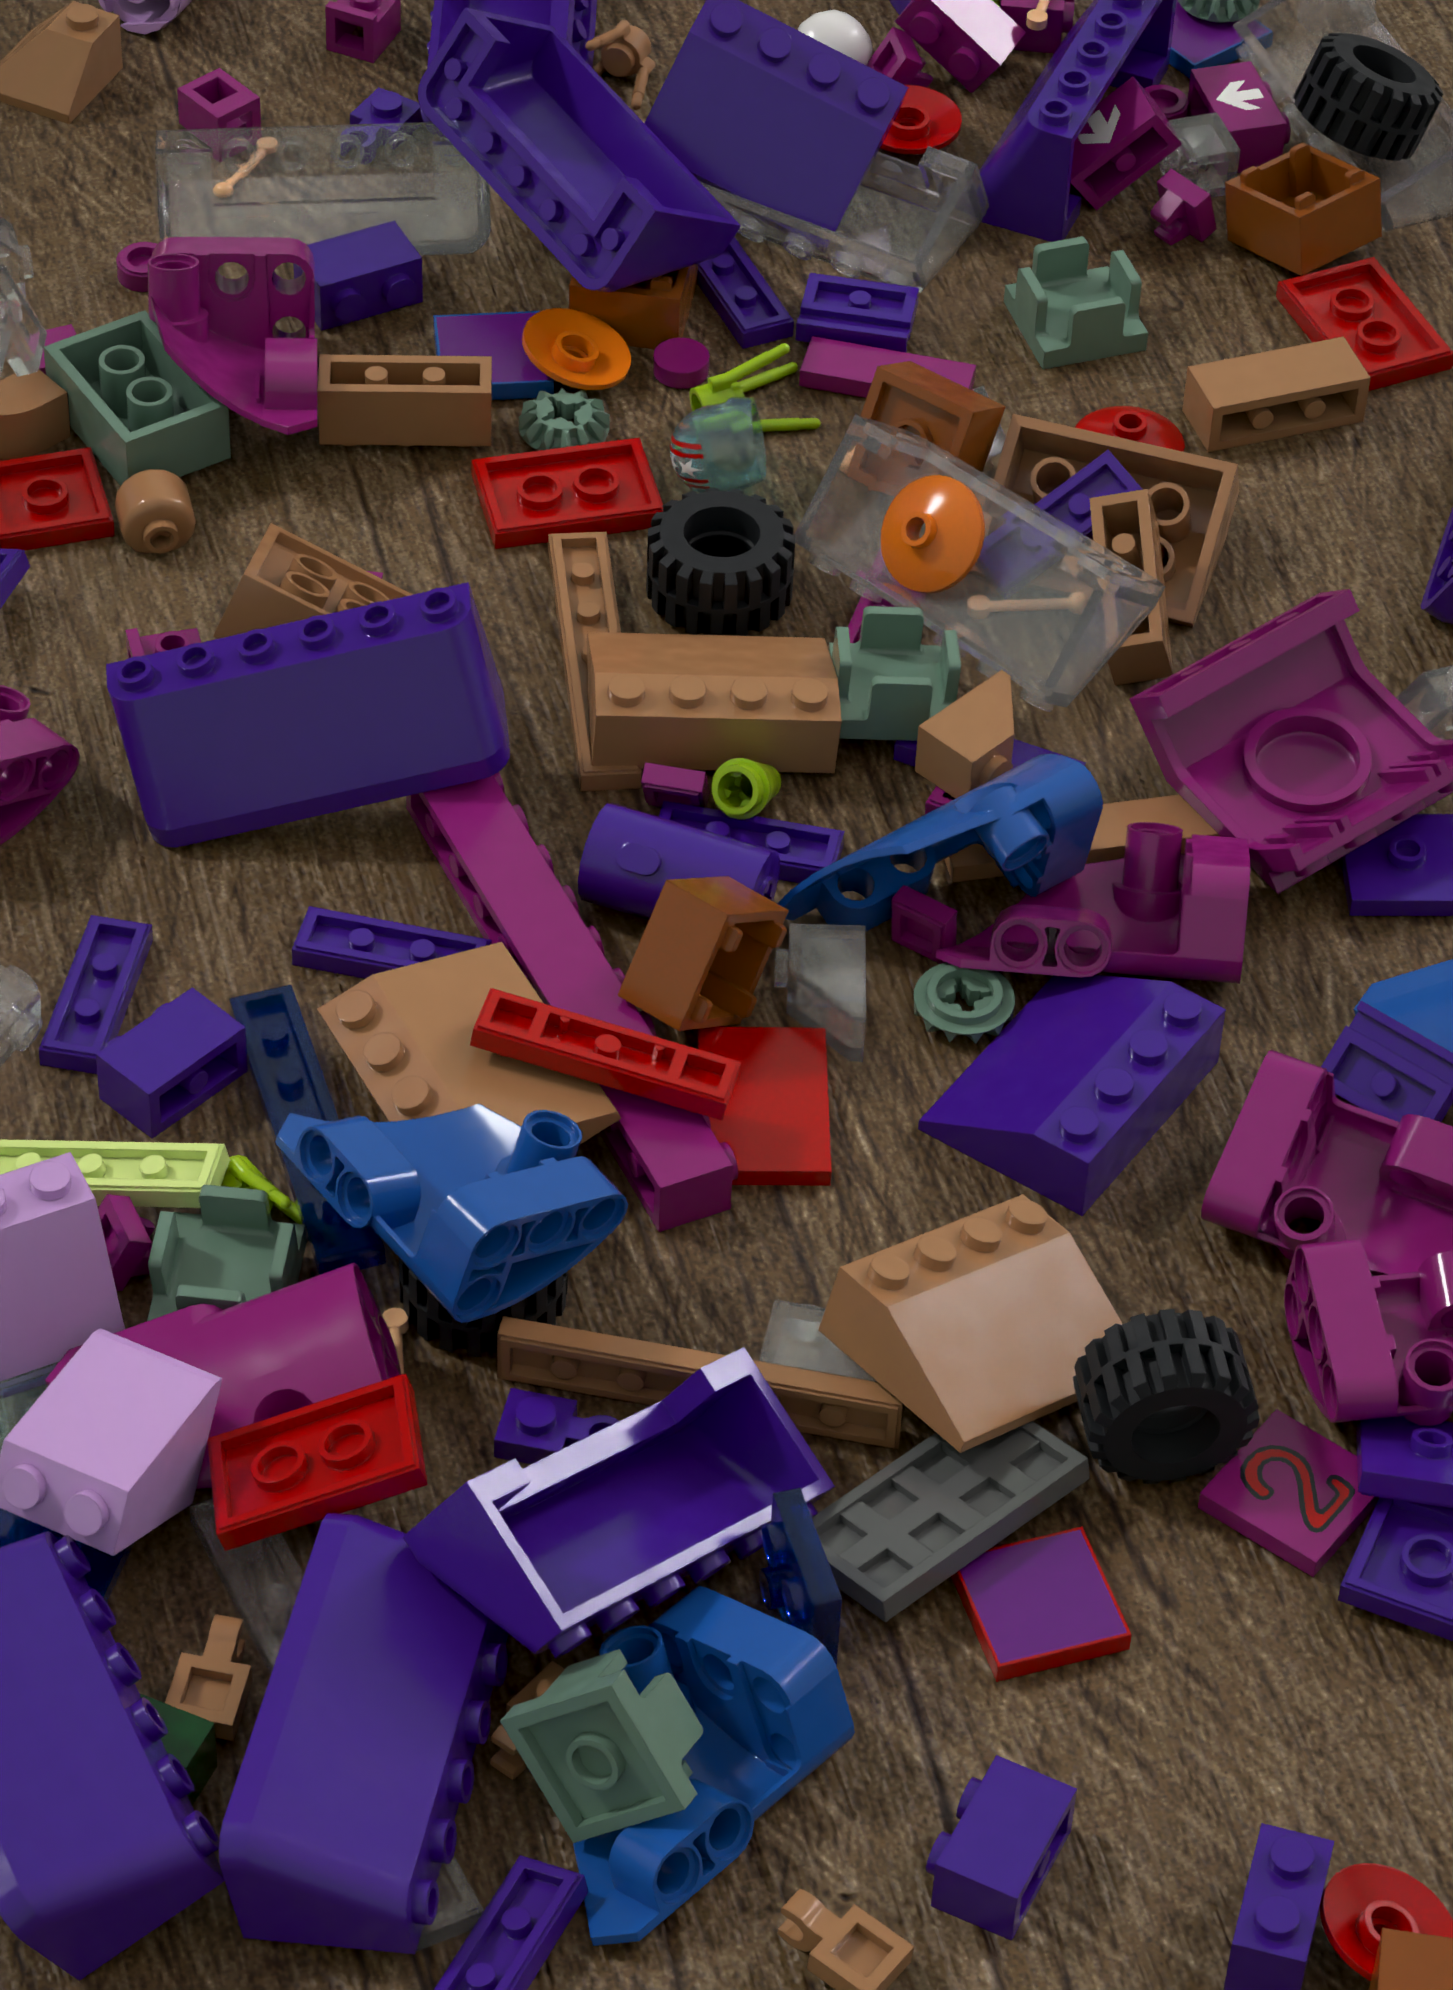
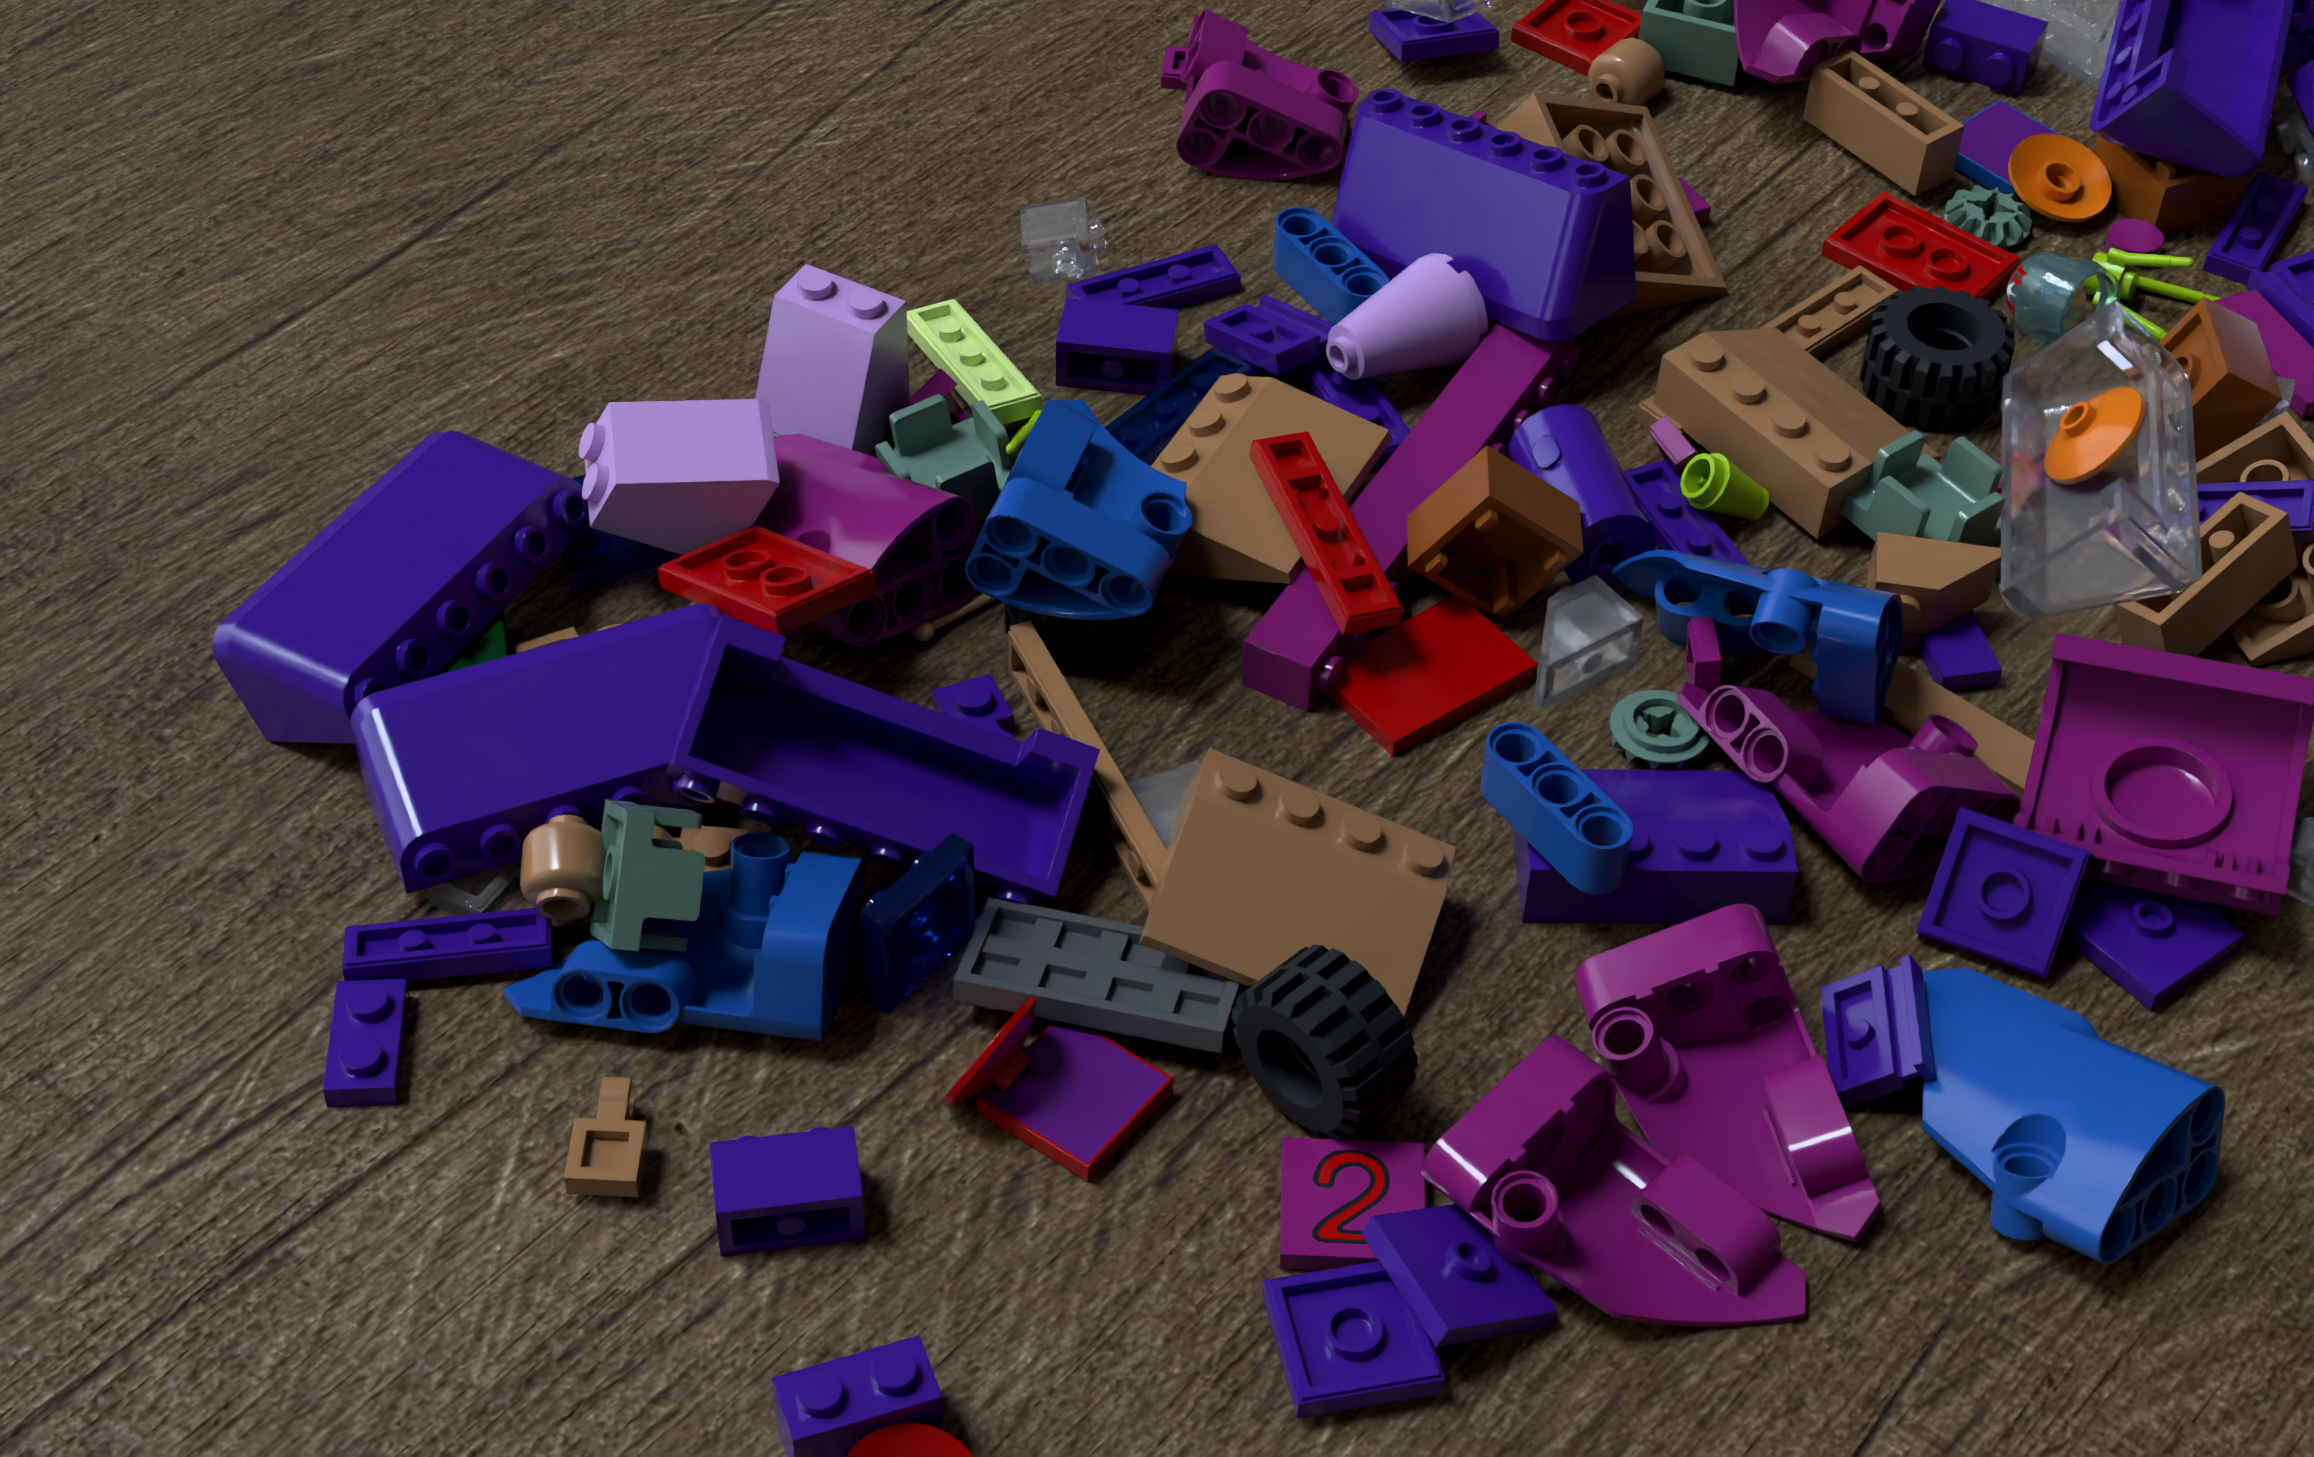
camera: 55 degrees right, 0 degrees up
(219, 862) = (1323, 264): none -> blue beam
(265, 949) = (1269, 335): none -> dark purple plate
(368, 841) = (1412, 323): none -> lavender cone
(519, 1806) = (563, 868): none -> medium nougat head
(980, 1622) = (1000, 1060): none -> red dish
(1070, 1099) = (1556, 808): none -> blue beam
(1327, 911) = (2003, 891): none -> dark purple plate

